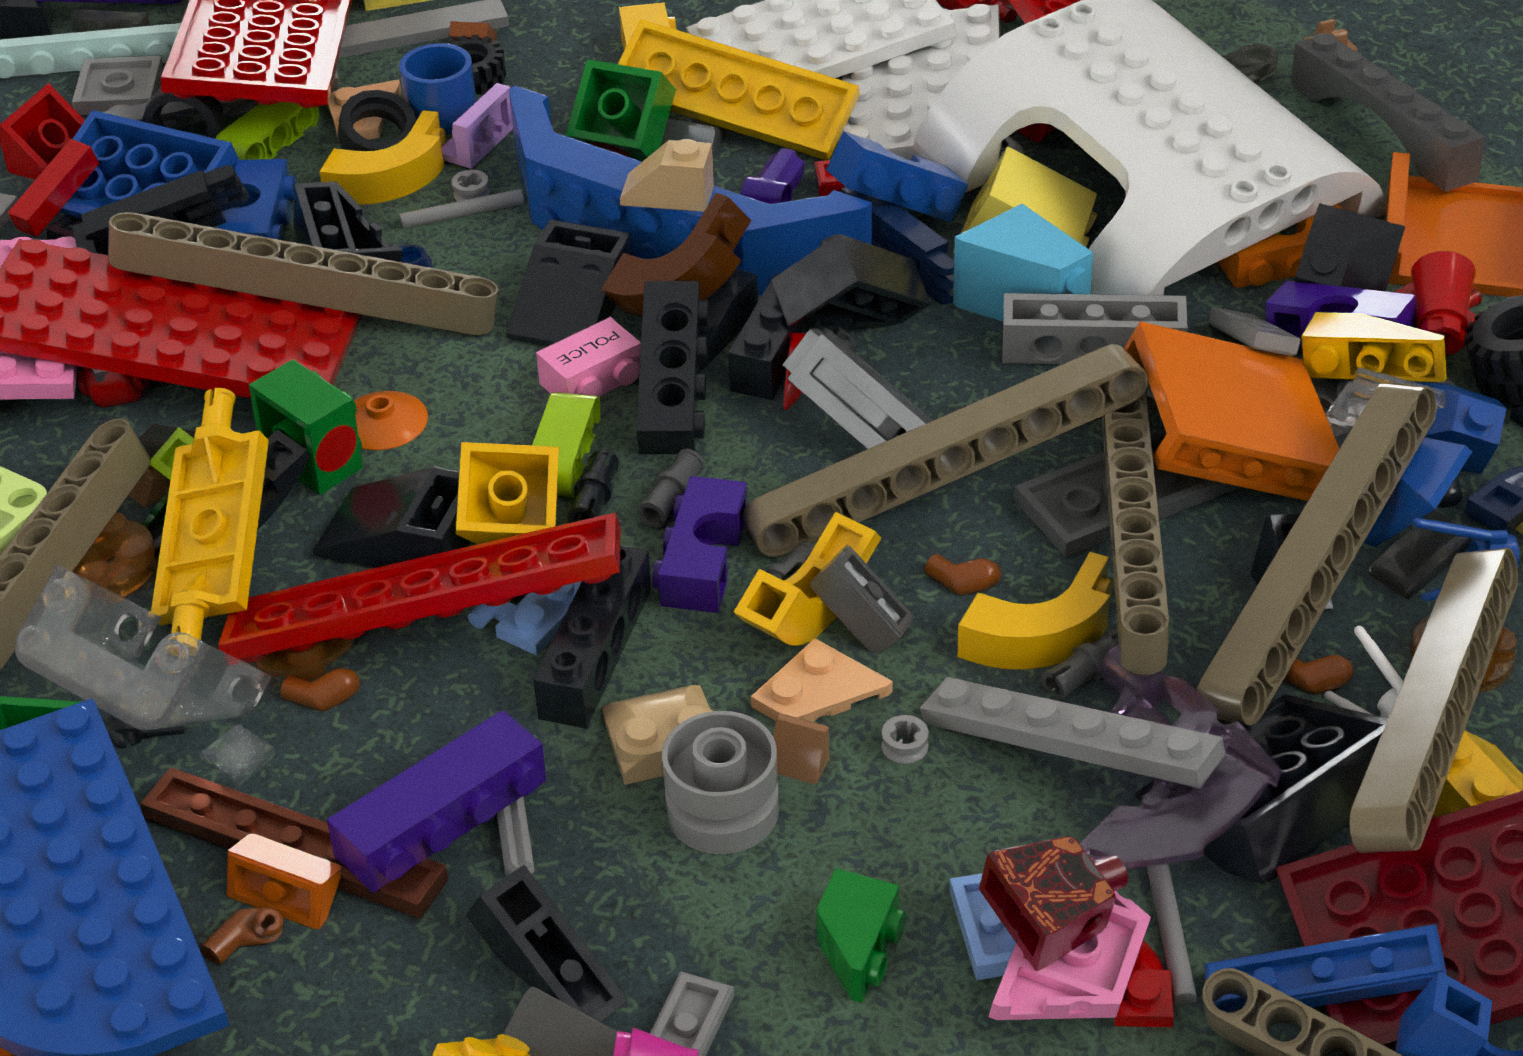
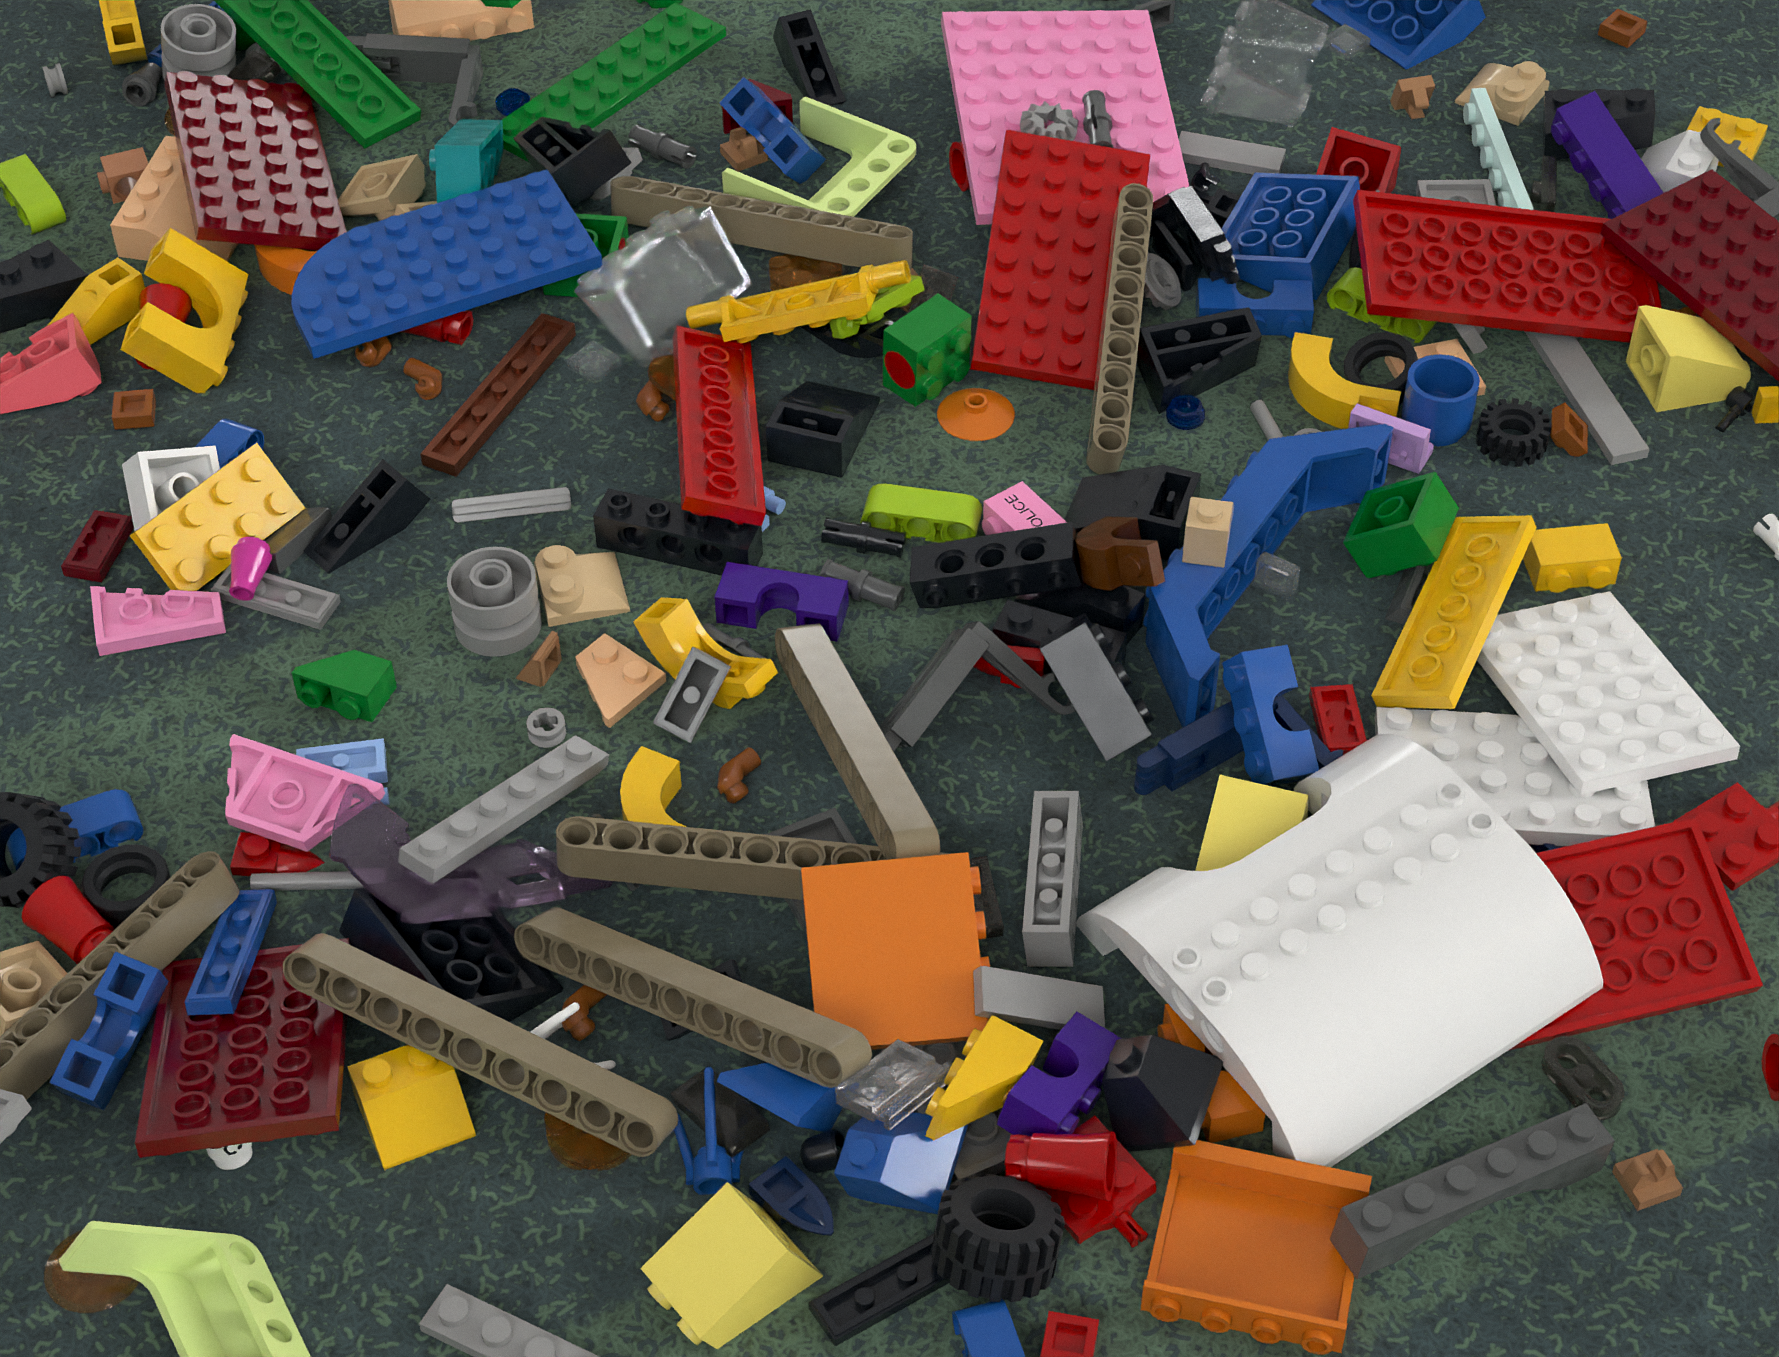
camera: 90 degrees right, 5 degrees up
(53, 187) = (1256, 175): red piece -> none
(282, 878) = (461, 386): orange slope -> none
(437, 800) = (498, 447): dark purple brick -> none
(505, 490) = (820, 469): yellow slope -> none
(776, 178) = (1317, 655): dark purple piece -> none
(1016, 256) = (1137, 823): medium azure slope -> none
(1051, 895) = (305, 760): dark red torso -> none

